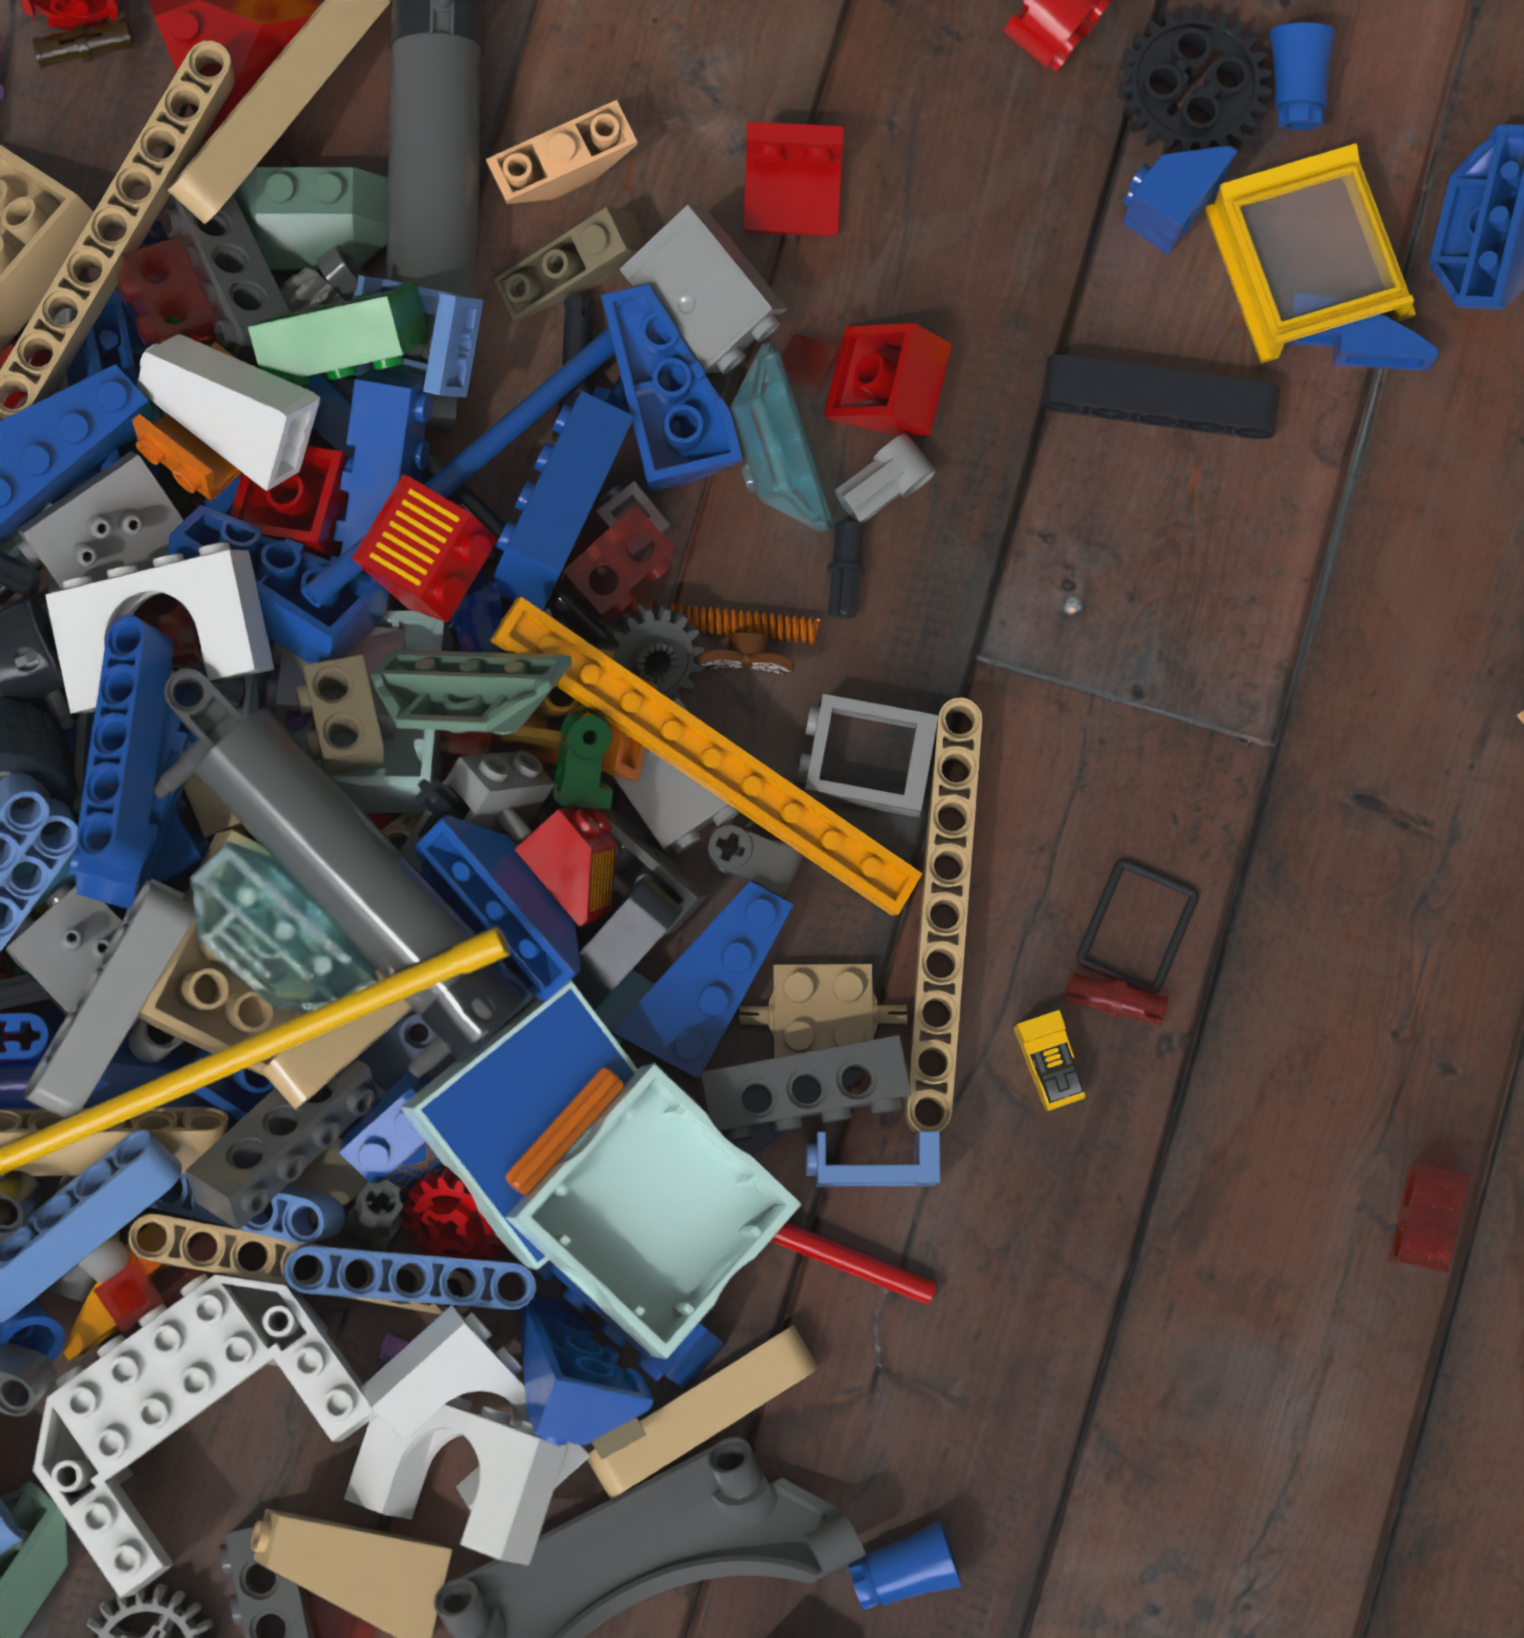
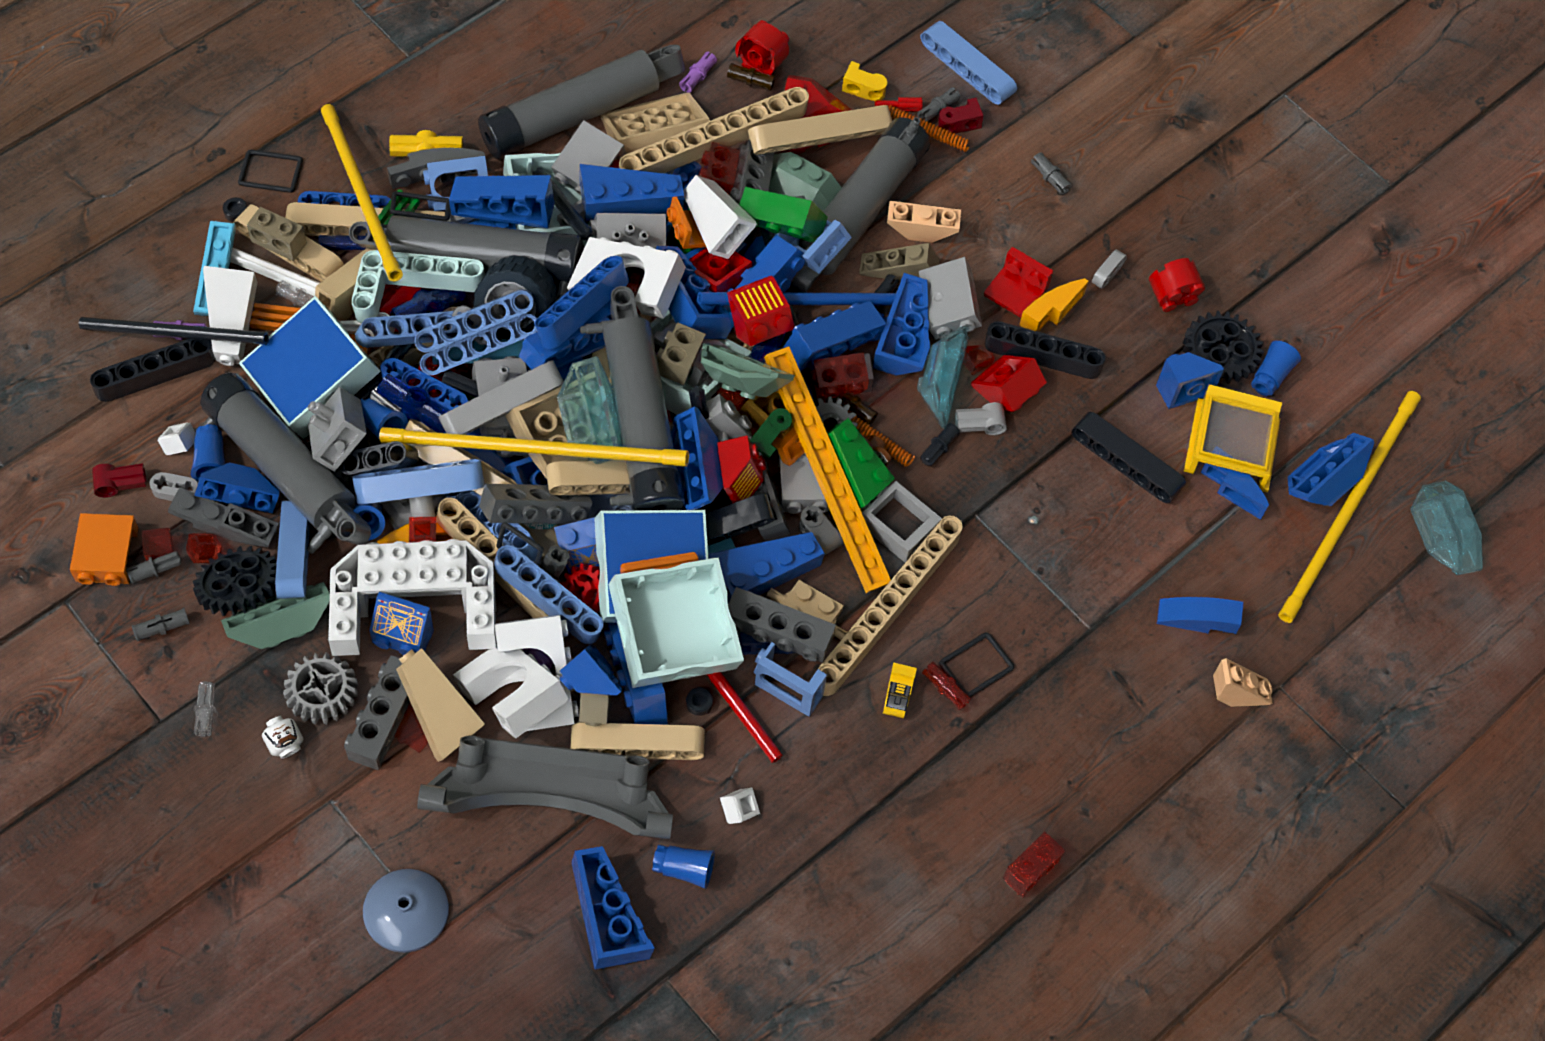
camera: 30 degrees right, 20 degrees down
(205, 1473) = (400, 624): none -> blue slope
(294, 1244) = (505, 525): none -> black piece
(673, 587) = (866, 414): none -> dark brown pin
(750, 708) = (859, 462): none -> green wedge
(753, 1279) = (699, 701): none -> black tile
(873, 184) = (1053, 305): none -> light orange slope
(923, 48) = (1109, 269): none -> light grey beam
(925, 1411) = (740, 805): none -> white slope
(926, 263) = (1056, 348): none -> black beam
(1434, 614) = (1200, 614): none -> blue slope

